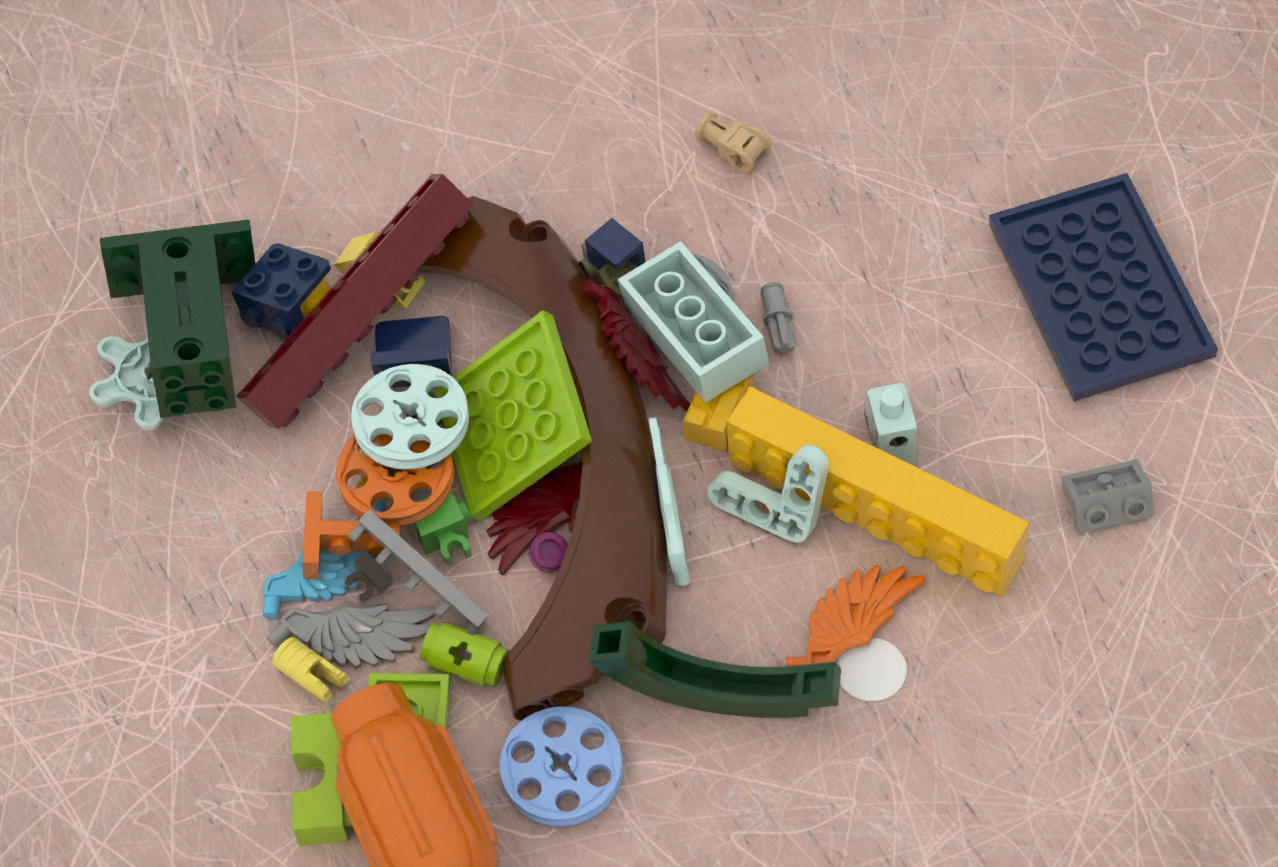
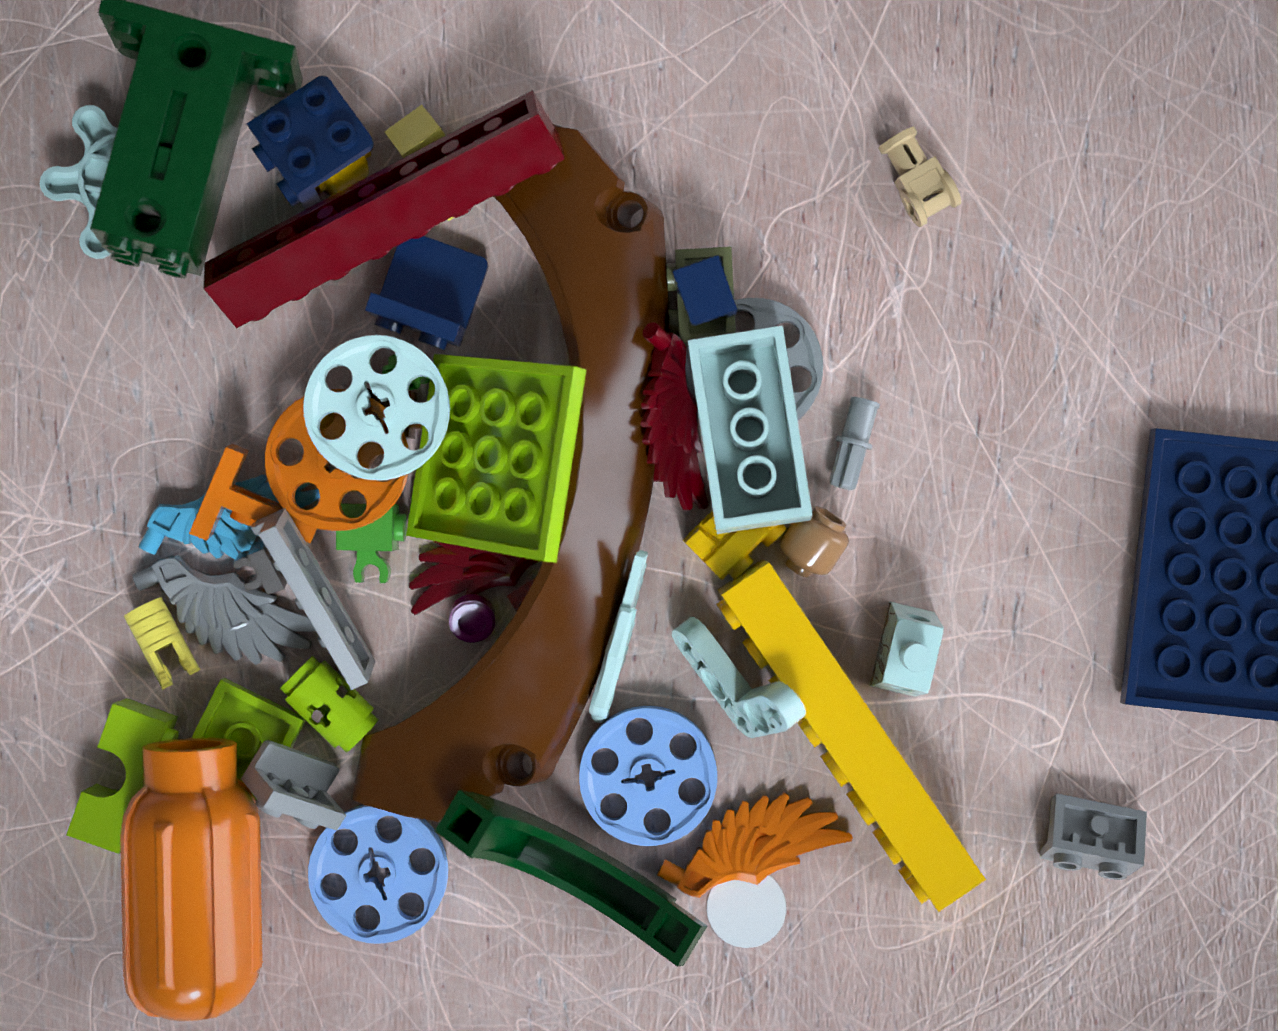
camera: 20 degrees right, 30 degrees up
(464, 714) = (294, 785): none -> light grey bracket
(741, 619) = (639, 798): none -> light blue wedge
(785, 382) = (814, 544): none -> medium nougat head

